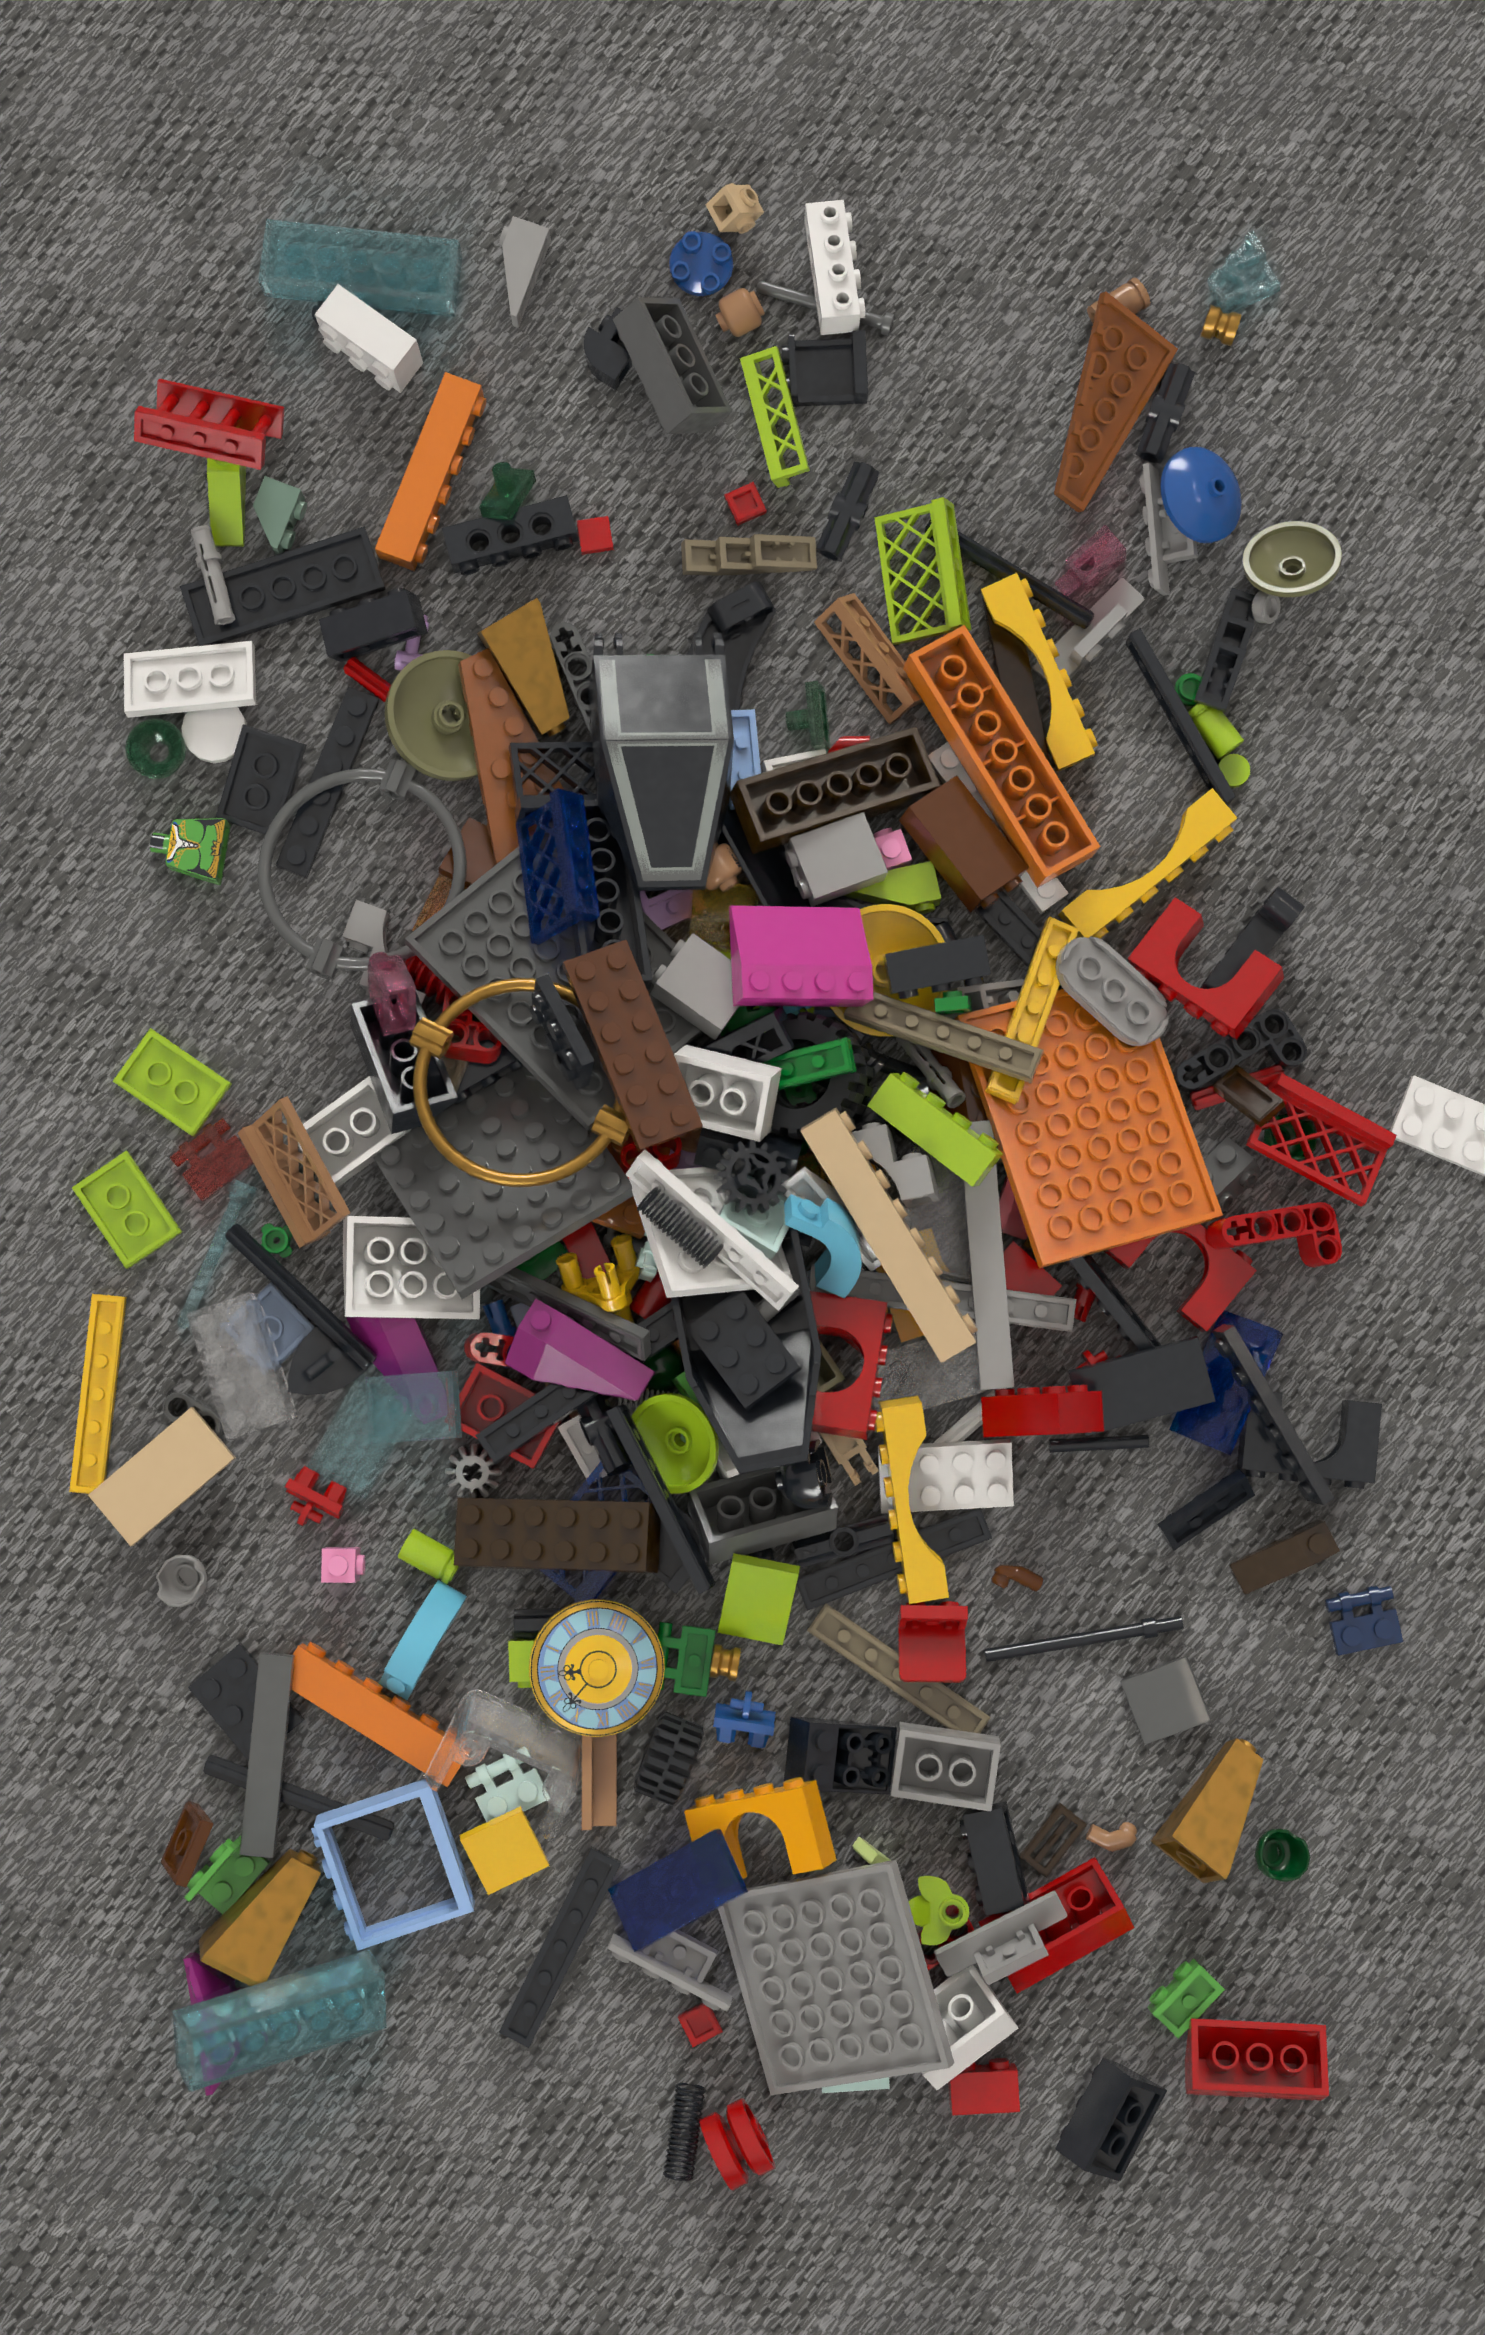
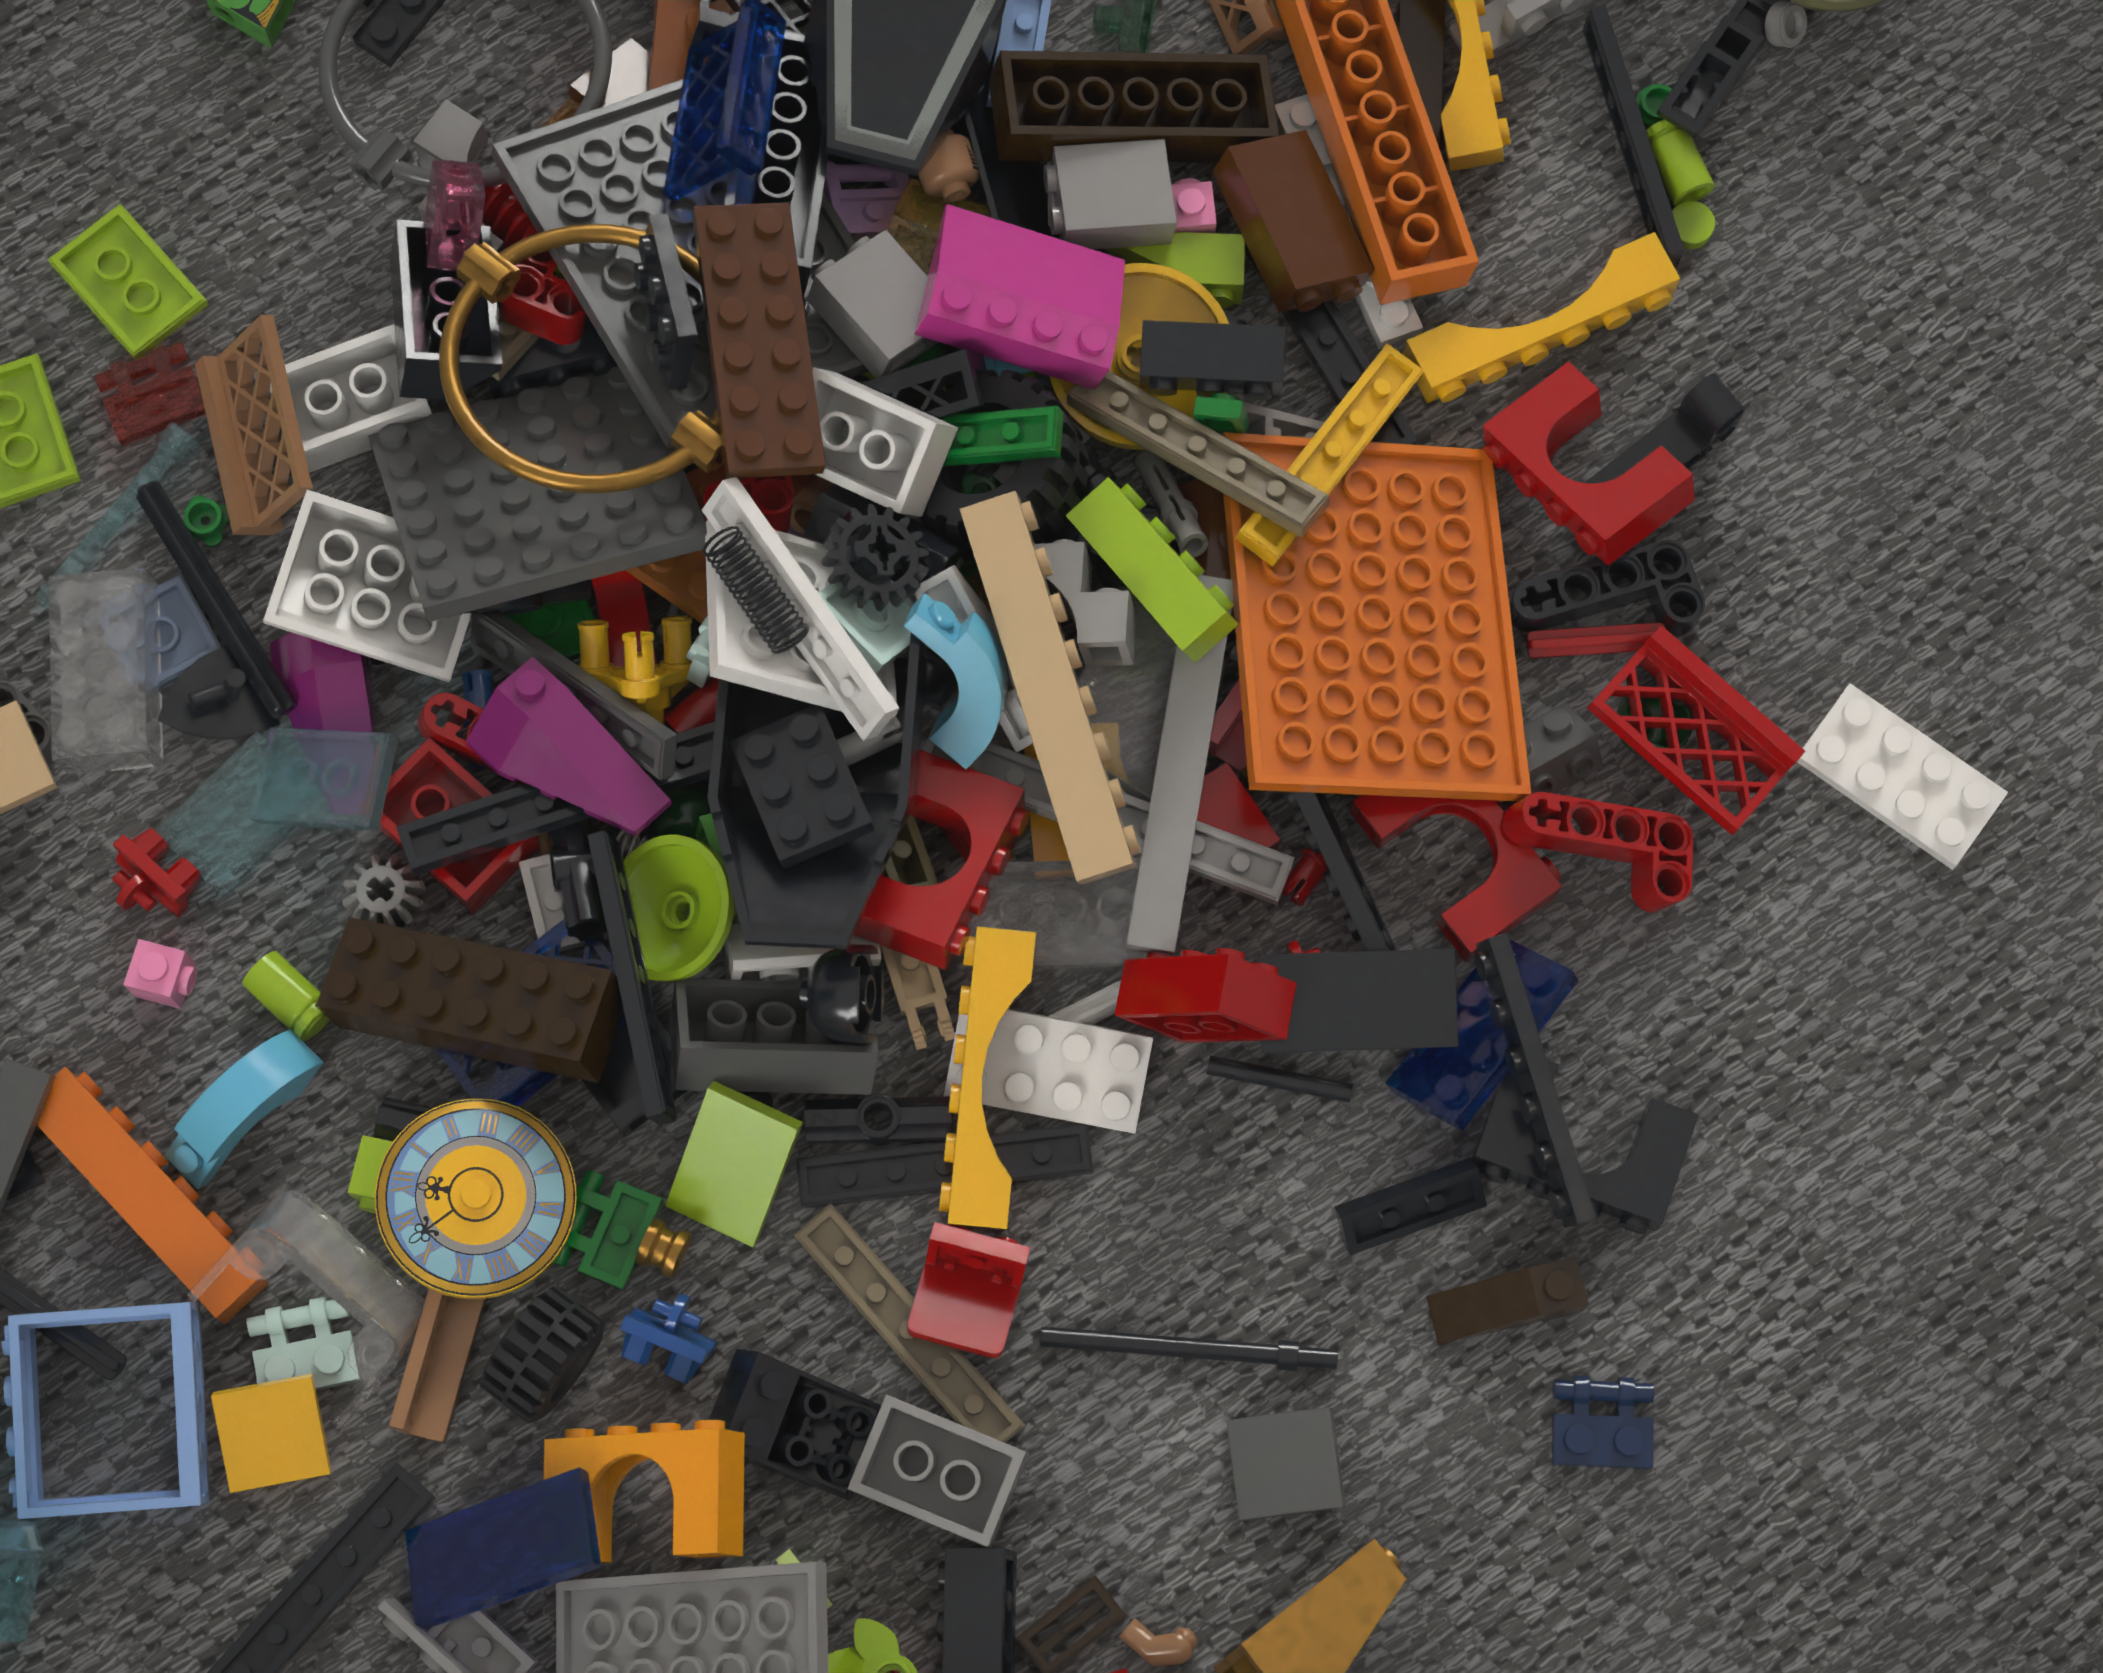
camera: 15 degrees right, 10 degrees down
(1018, 1574) = (1114, 1229): reddish brown arm -> none
(1112, 991) = (1450, 460): light grey tile -> none
(1248, 1096) = (1607, 645): dark brown tile -> none

